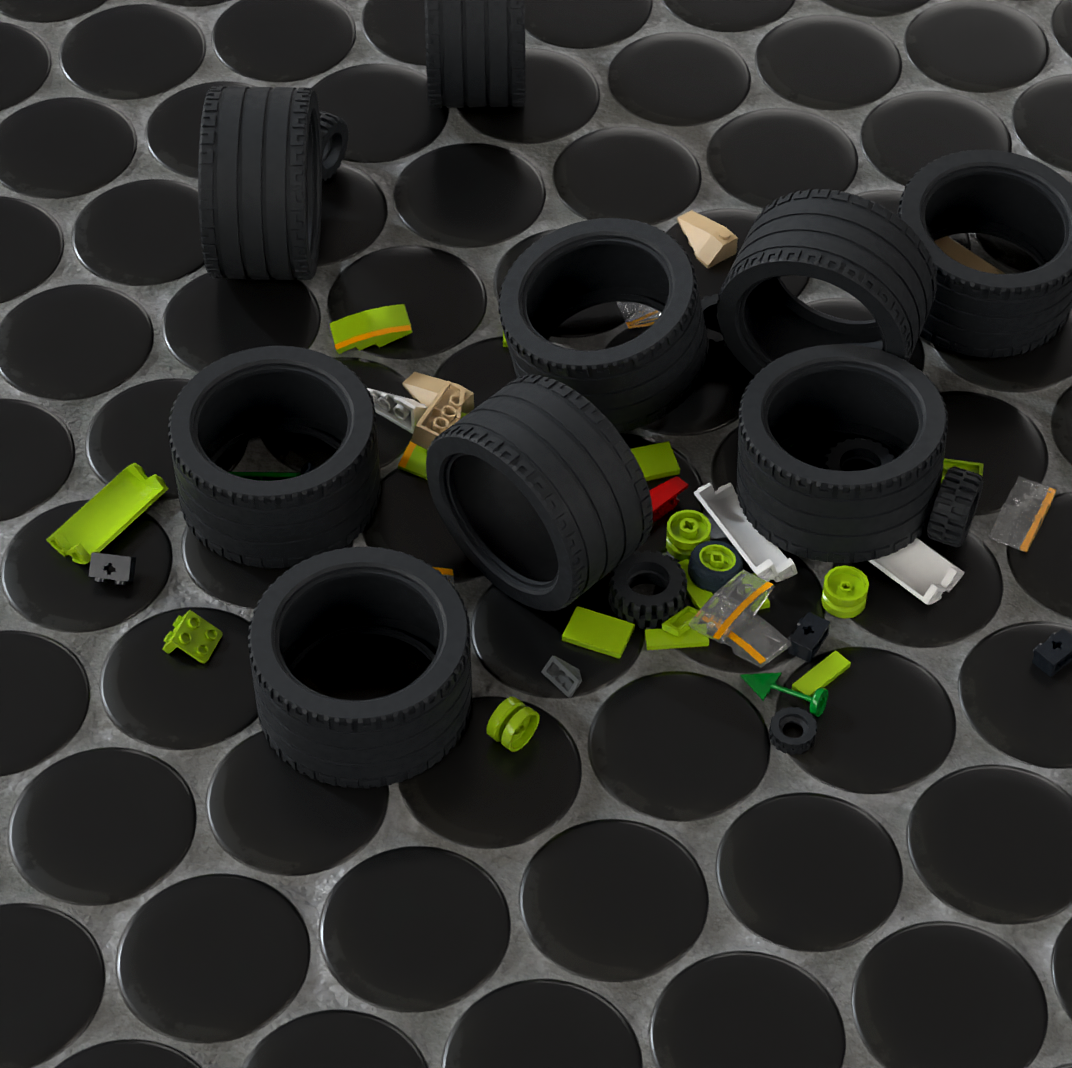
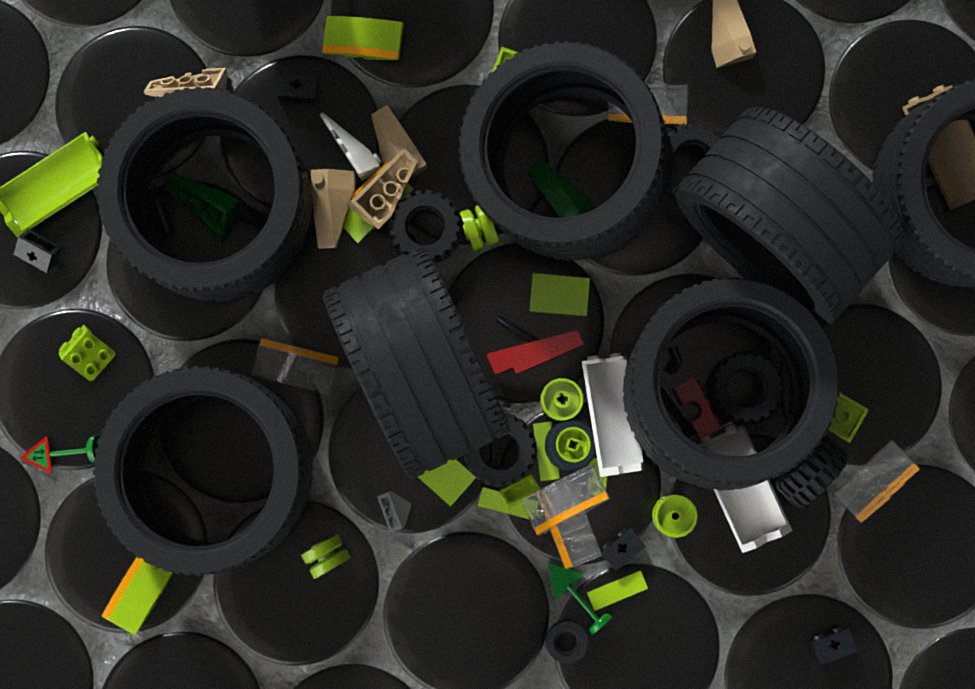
camera: 20 degrees right, 35 degrees up
(175, 739) = (41, 456): none -> green piece
(326, 820) = (136, 596): none -> lime slope
(396, 452) = (330, 195): none -> tan wedge

